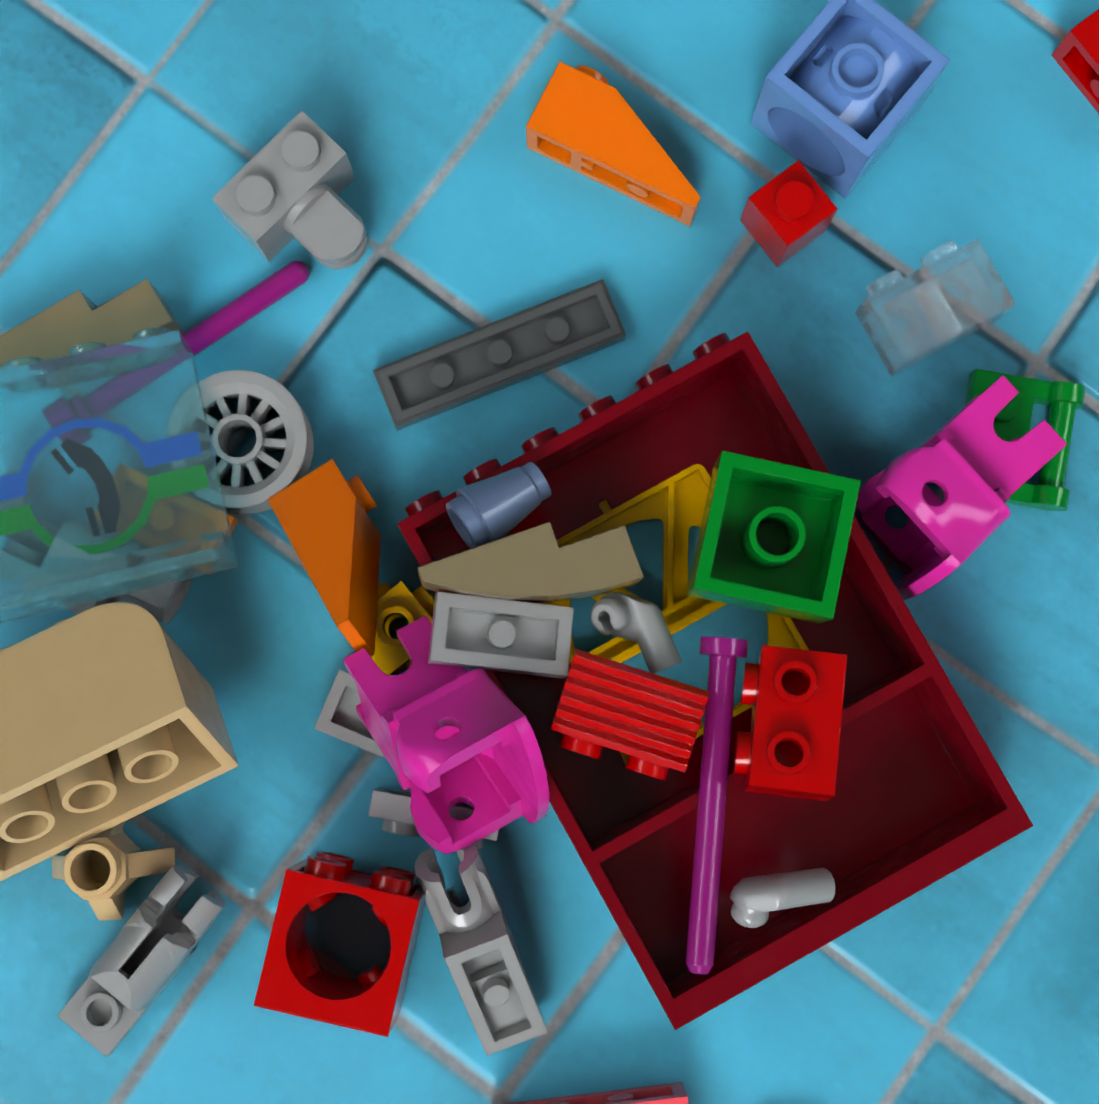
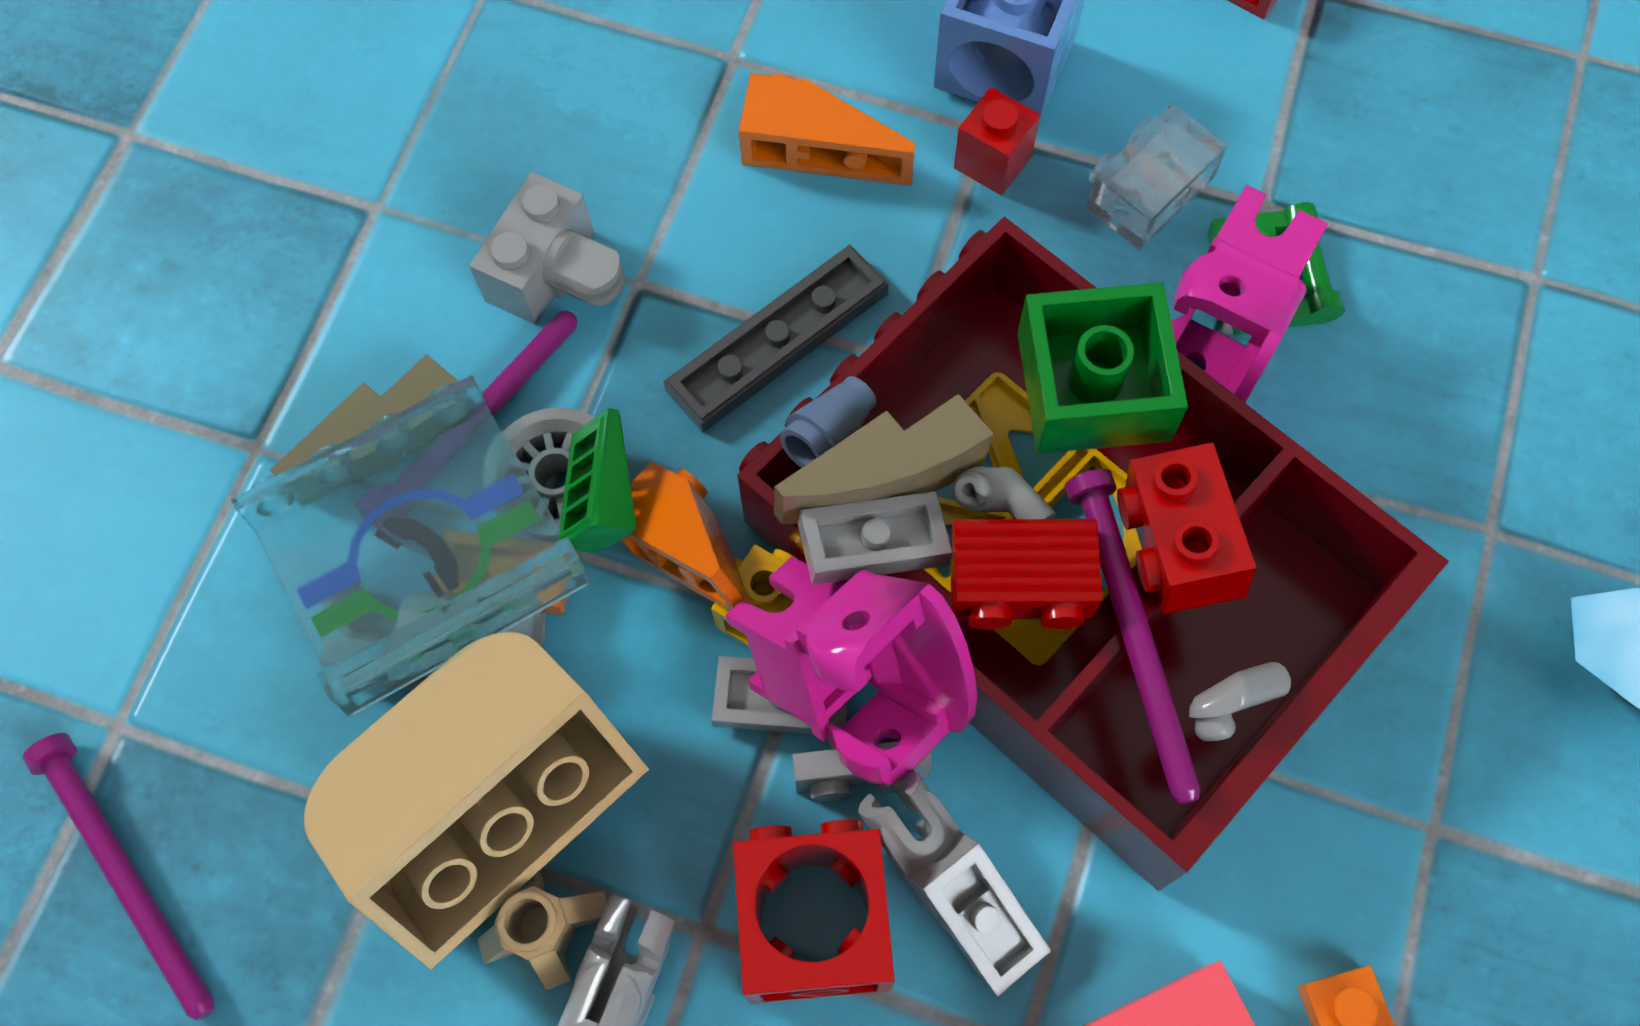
camera: 15 degrees left, 15 degrees down
(269, 476) = (597, 486): none -> green slope

